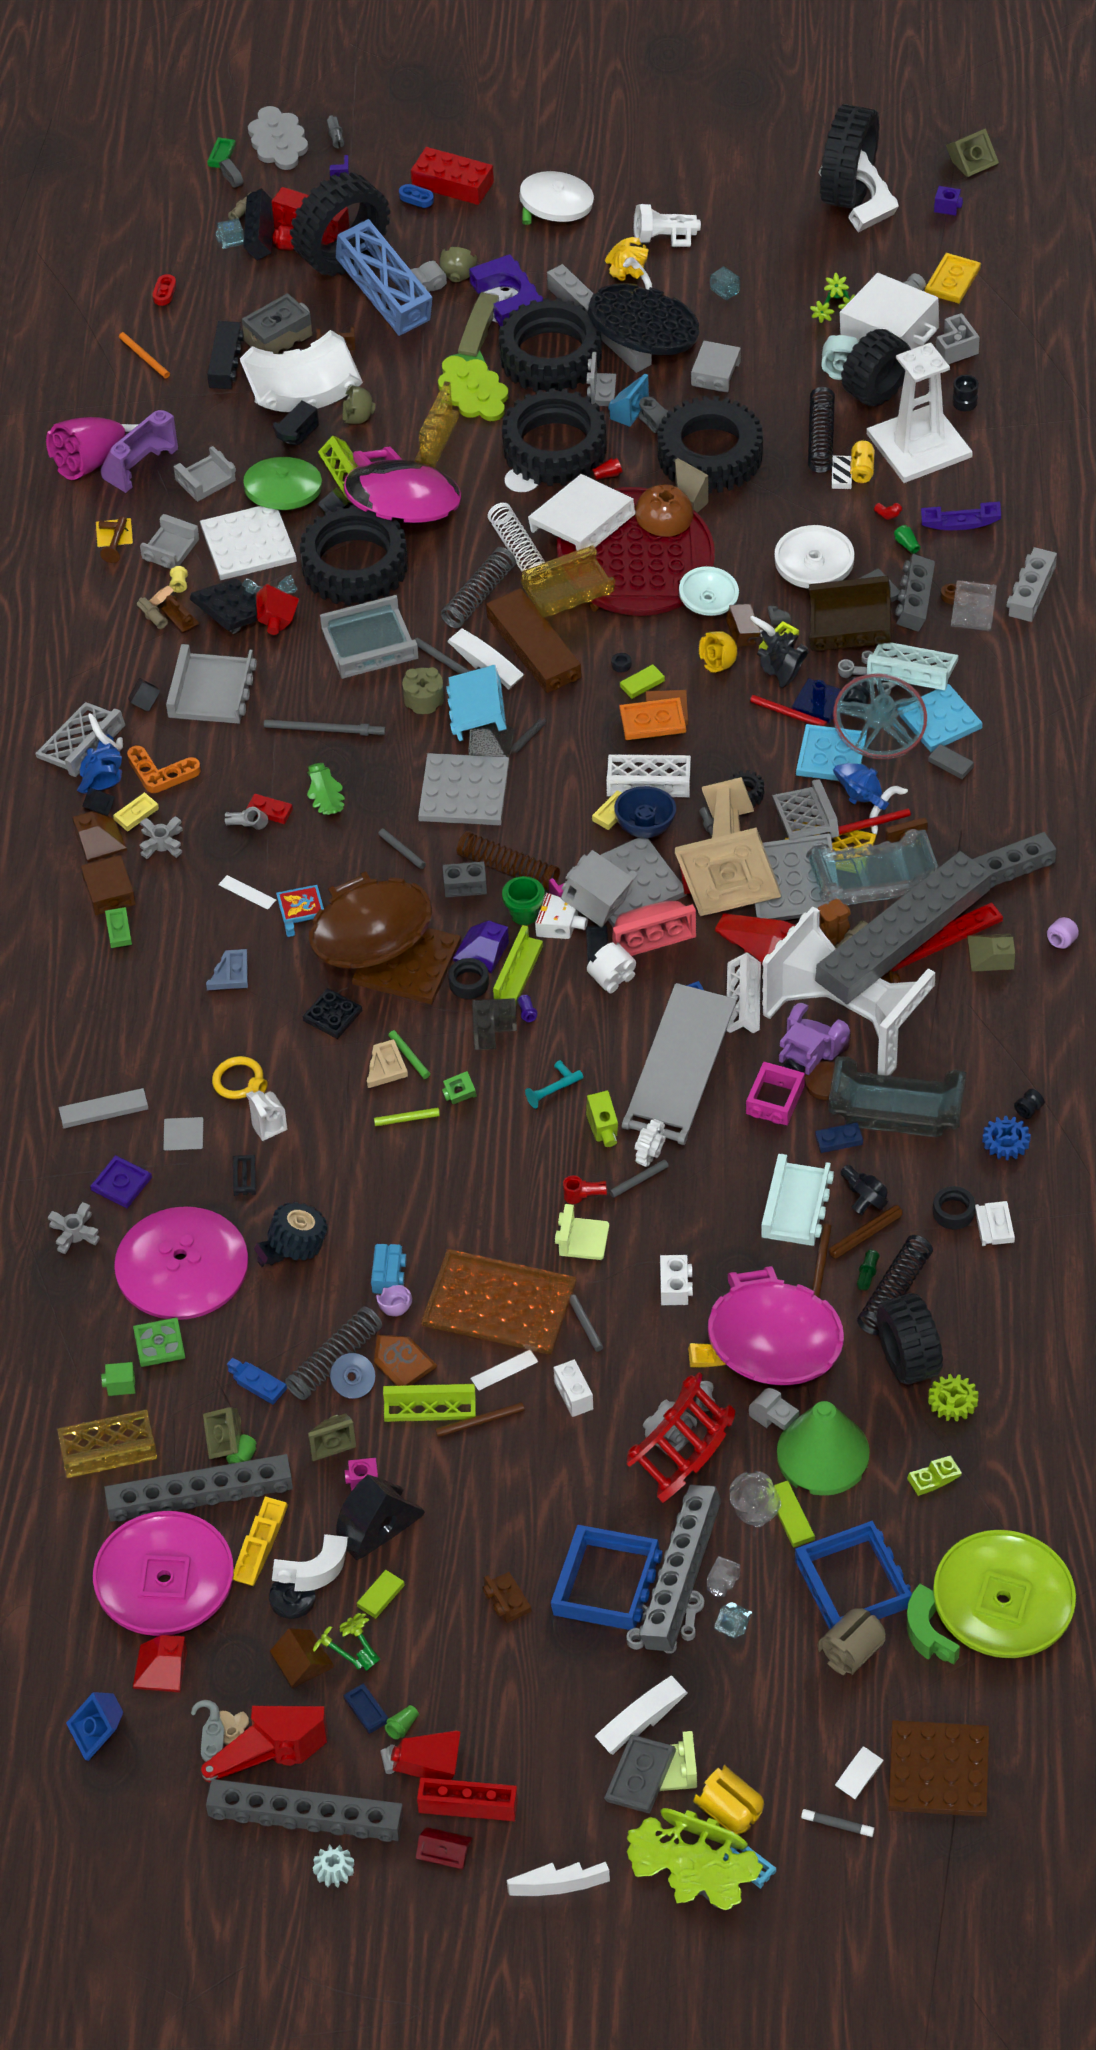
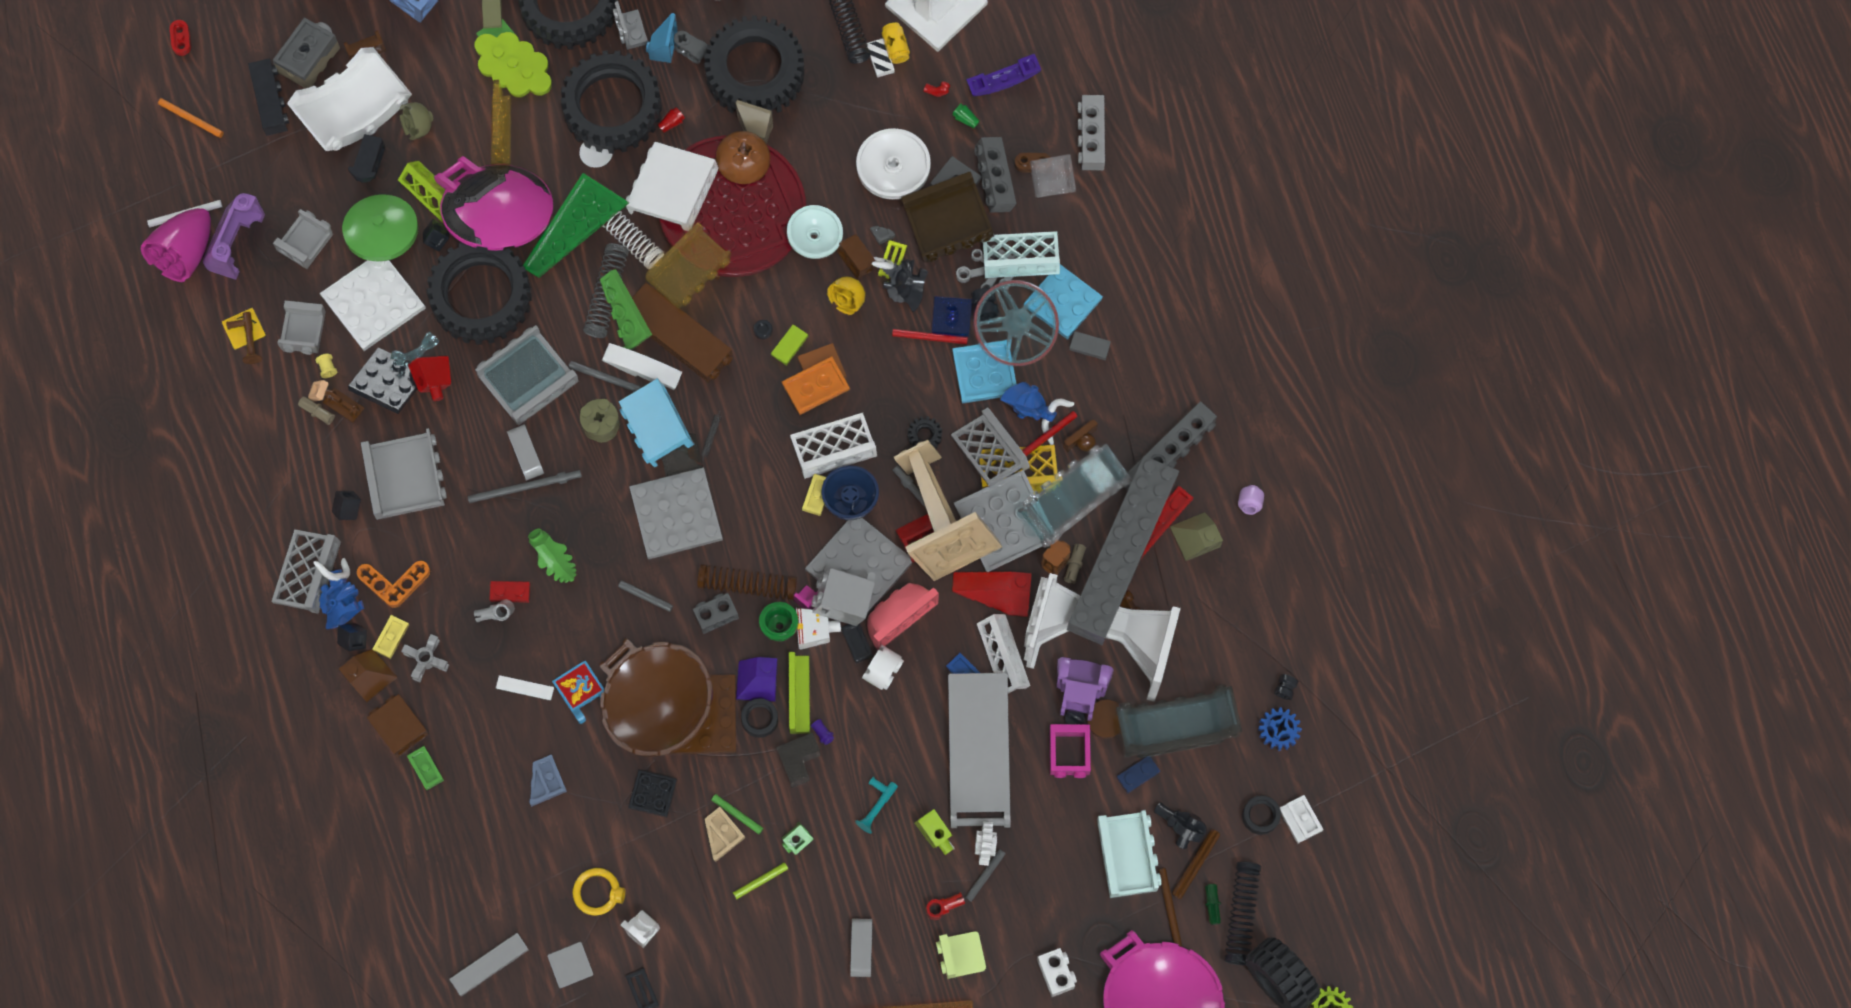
camera: 25 degrees left, 20 degrees up
(337, 698) = (525, 452): none -> light grey beam
(481, 515) = (580, 215): none -> green wing
(482, 1200) = (861, 947): none -> light grey beam
(488, 603) = (629, 319): none -> bright green wing

